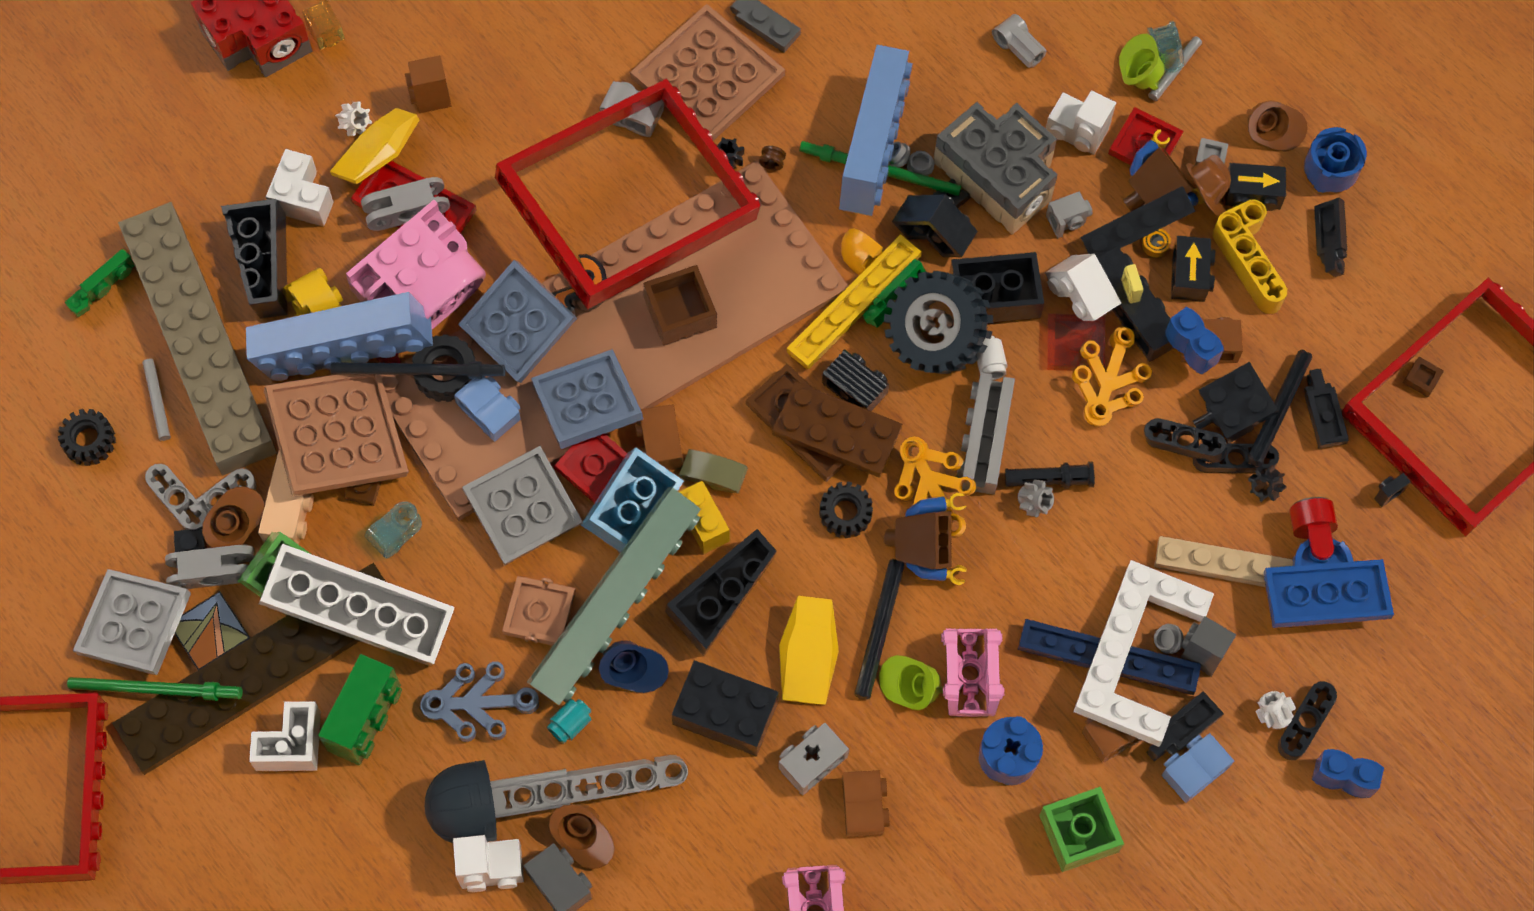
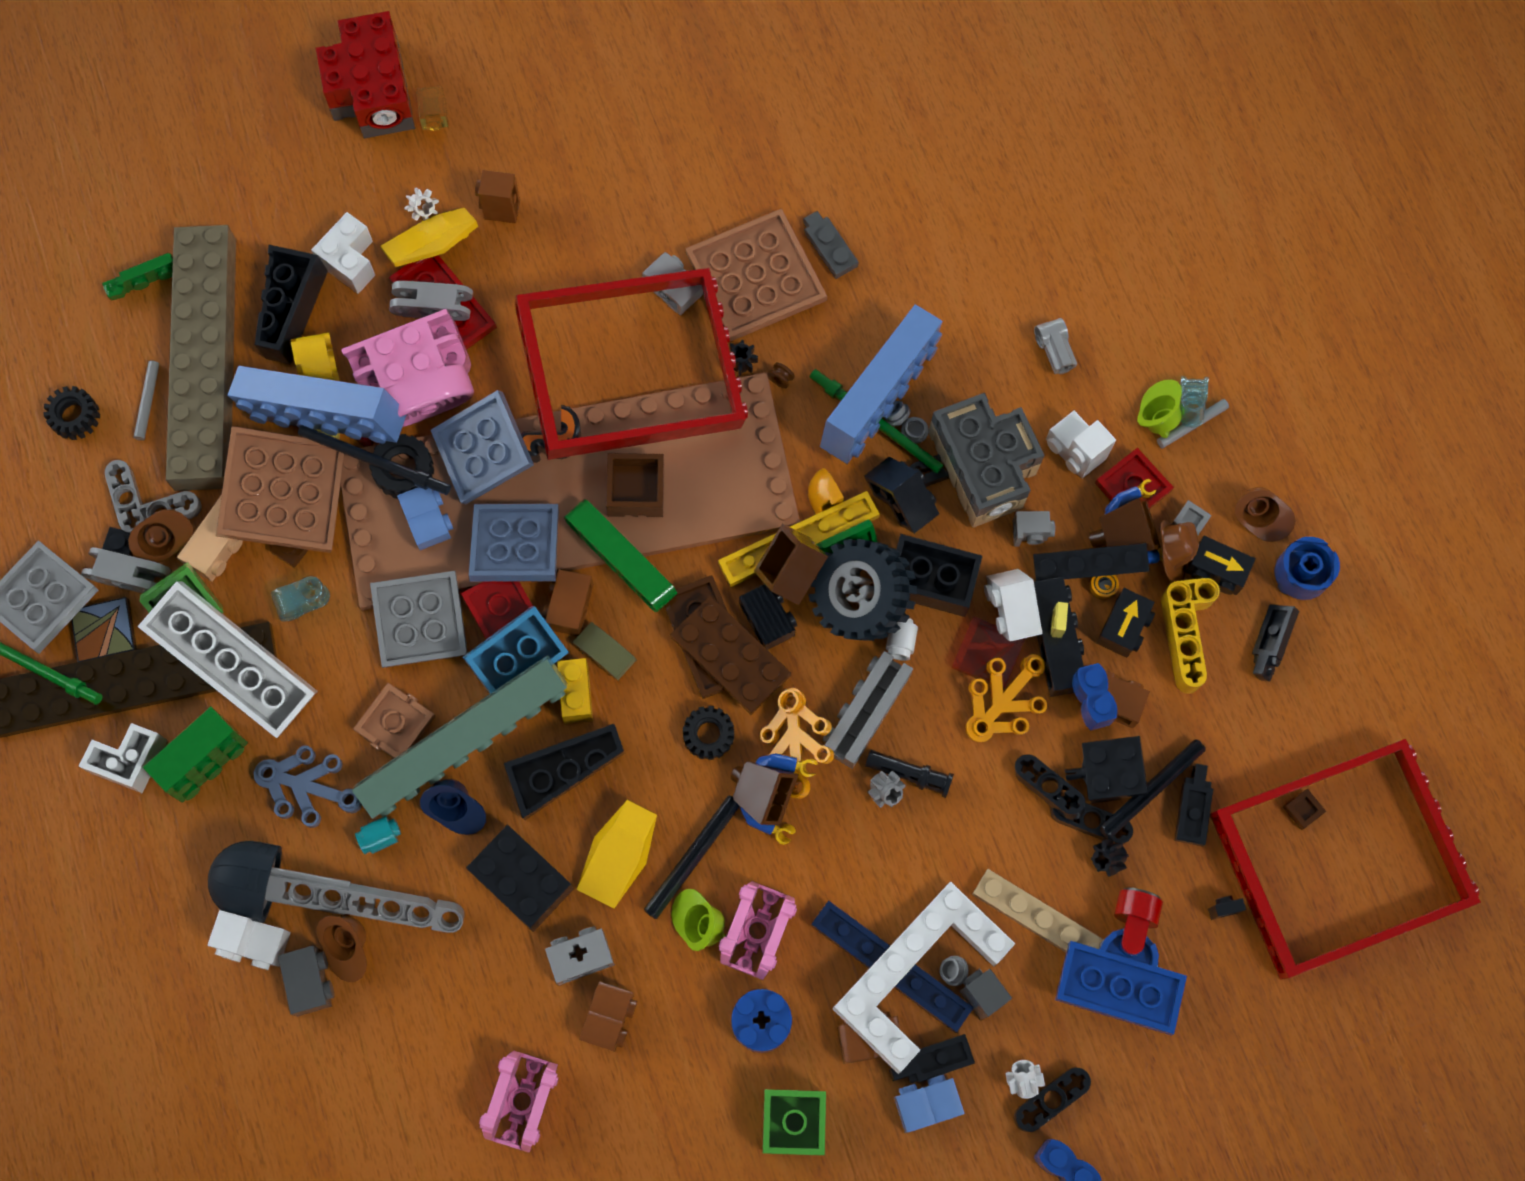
camera: 20 degrees right, 5 degrees up
(693, 375) = (620, 555): none -> green beam
(860, 323) = (790, 564): none -> reddish brown piece

